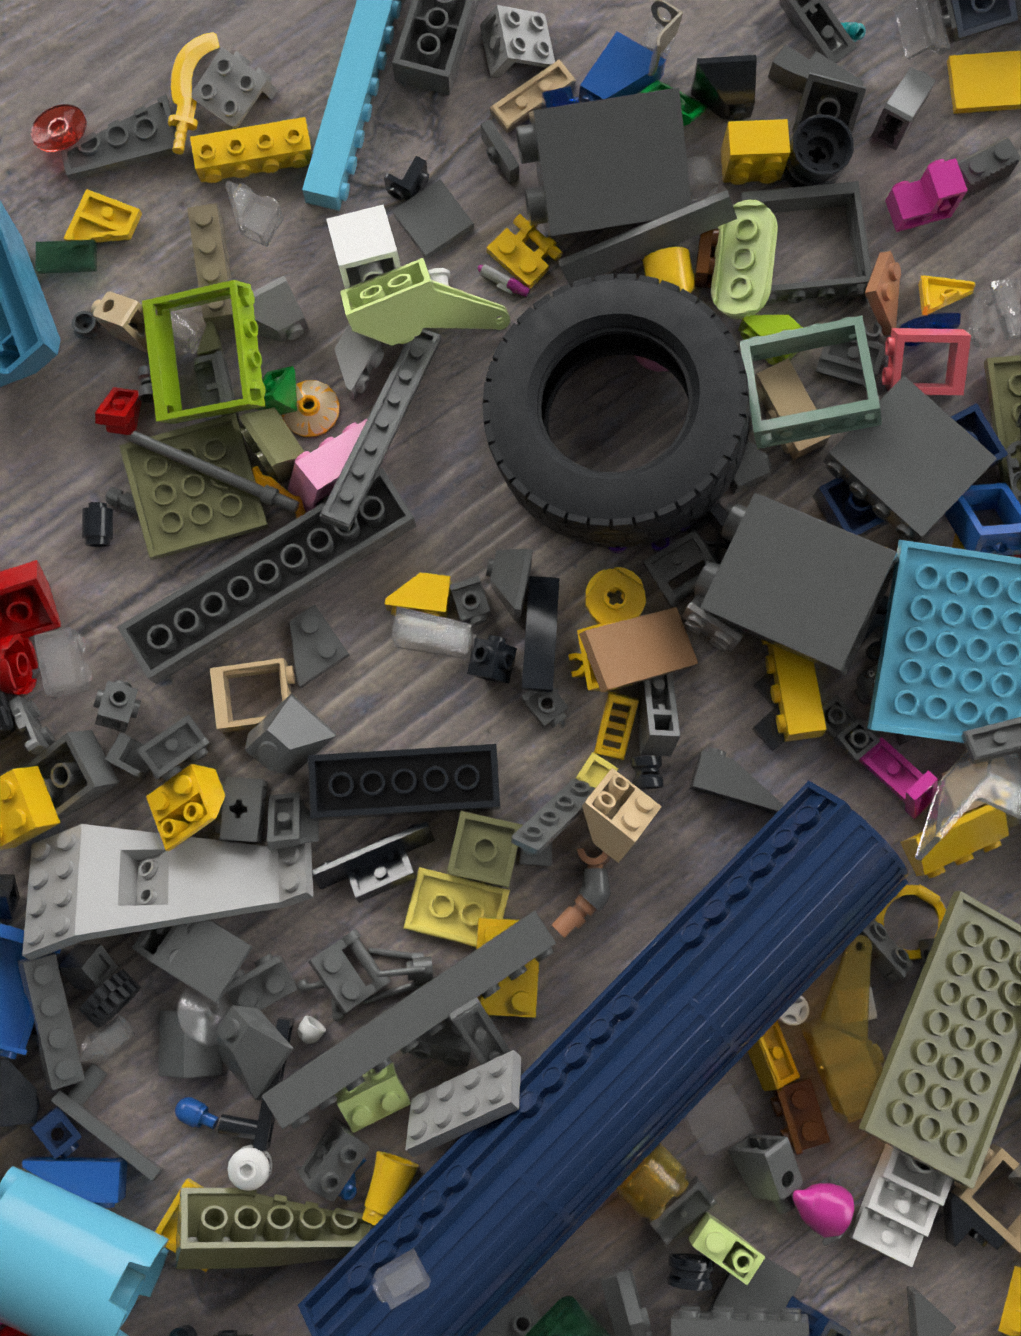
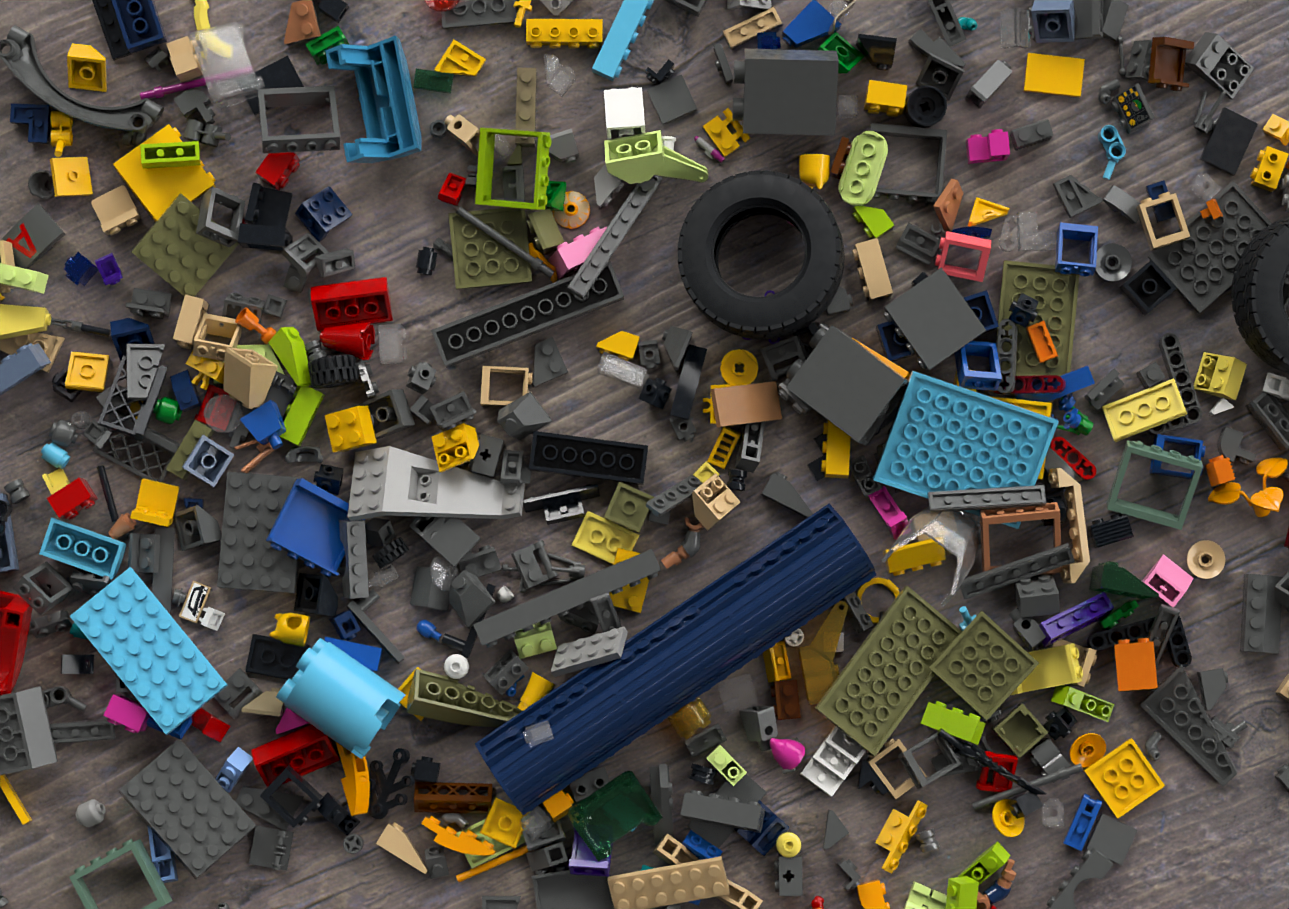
camera: 10 degrees right, 5 degrees up
(649, 238) = (804, 144): dark grey tile -> none
(820, 421) = (884, 288): sand green window -> none

